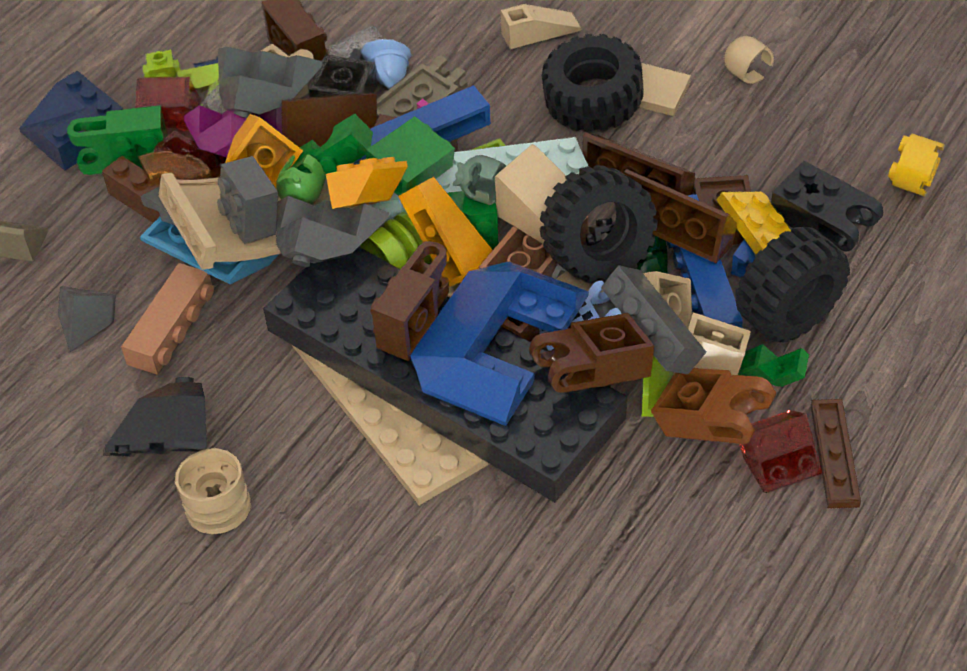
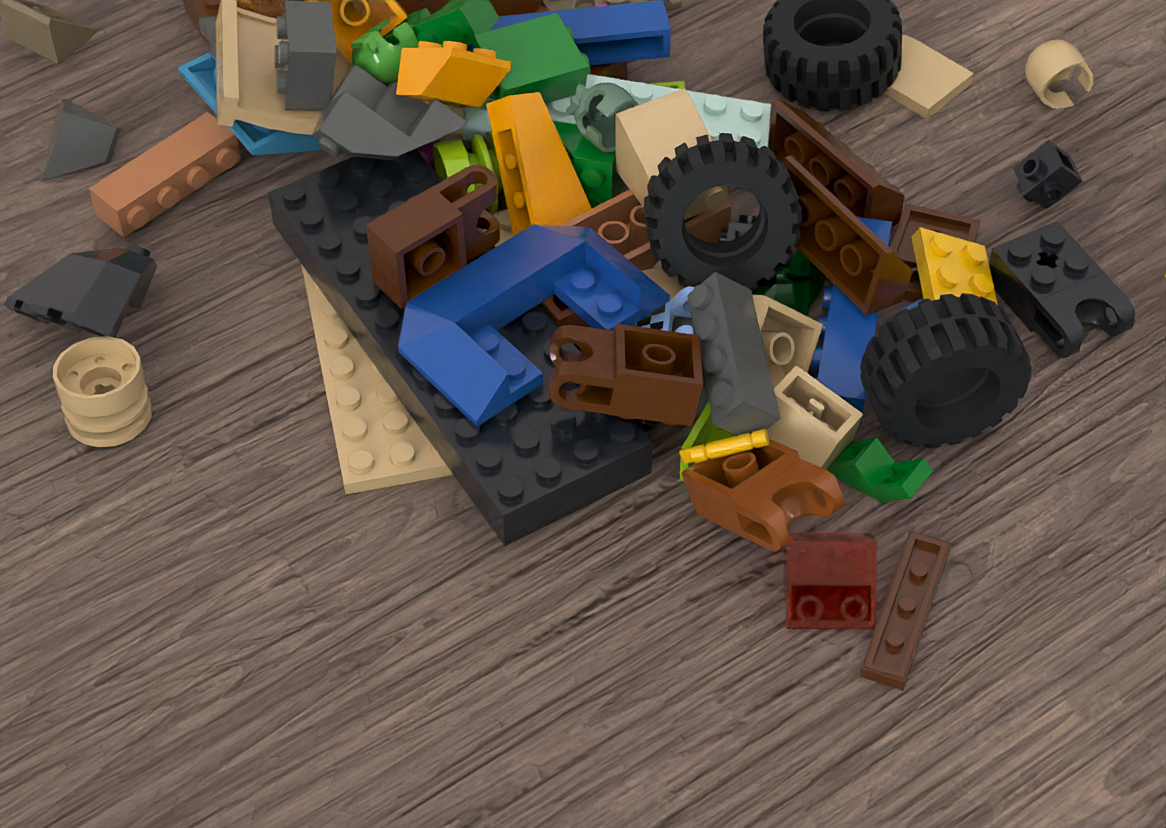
camera: 20 degrees right, 0 degrees up
(674, 383) = (725, 447): none -> yellow wheel
(777, 131) = (1046, 175): none -> black brick

